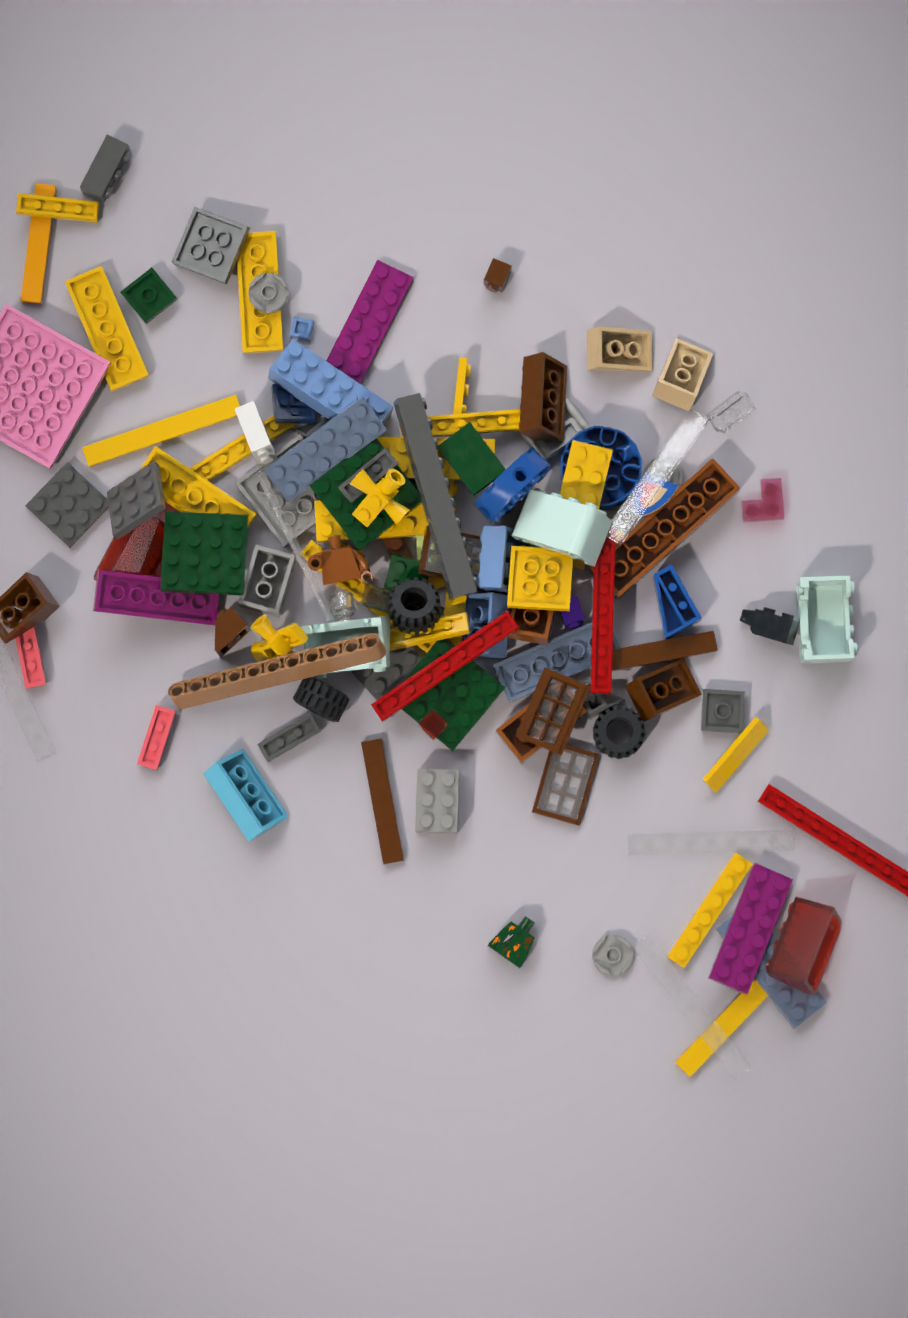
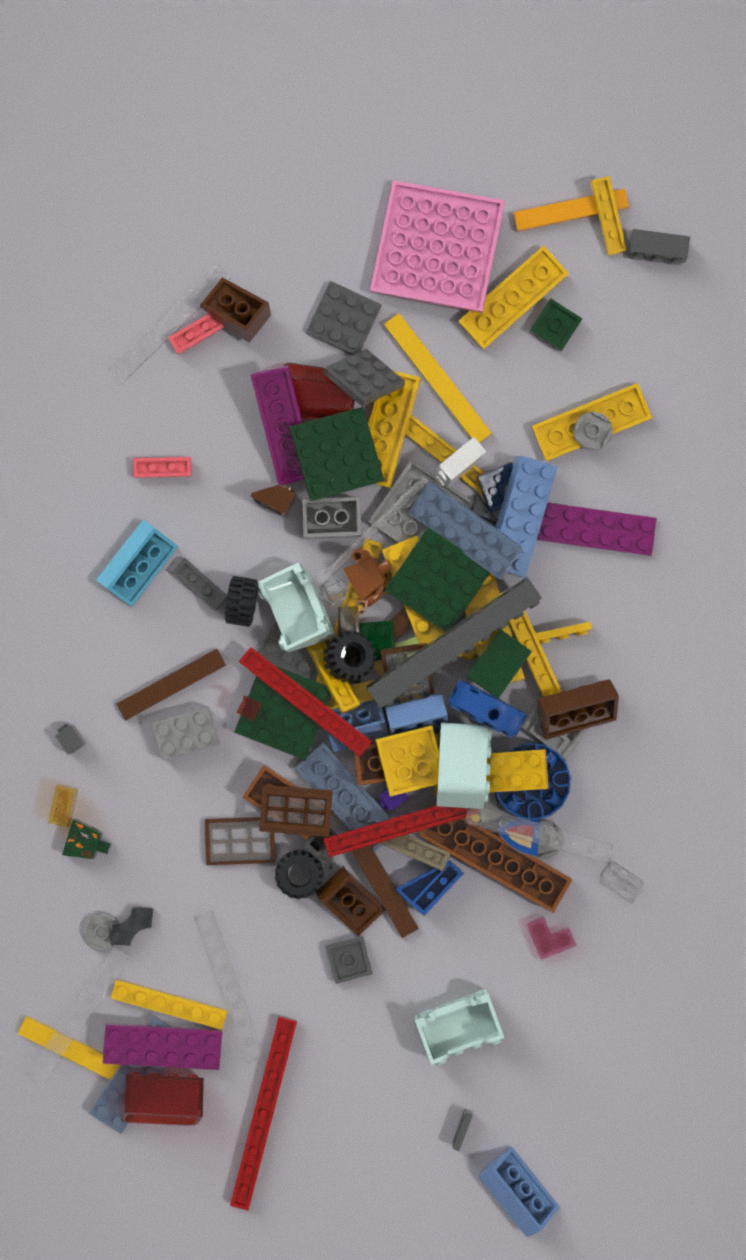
camera: 70 degrees right, 5 degrees up
(210, 245) = (619, 364): plate -> none
(276, 642) = (277, 547): yellow brick -> none
(277, 671) = (251, 555): medium nougat beam -> none
(301, 328) = (571, 471): medium blue tile -> none
(375, 468) = (452, 577): dark grey plate -> none
(379, 497) = (434, 593): yellow brick -> none
(403, 922) = (70, 738): none -> dark grey brick
(470, 951) = (63, 805): none -> clear yellow brick
(497, 275) = (677, 630): reddish brown brick -> none
(619, 350) = (645, 762): tan slope -> none
(620, 930) = (138, 920): none -> black tile
(634, 601) = (419, 851): none -> dark tan plate
(682, 374) = (642, 826): tan slope -> none
(735, 754) = (313, 984): yellow tile -> none
(770, 625) = (438, 979): black hinge -> none

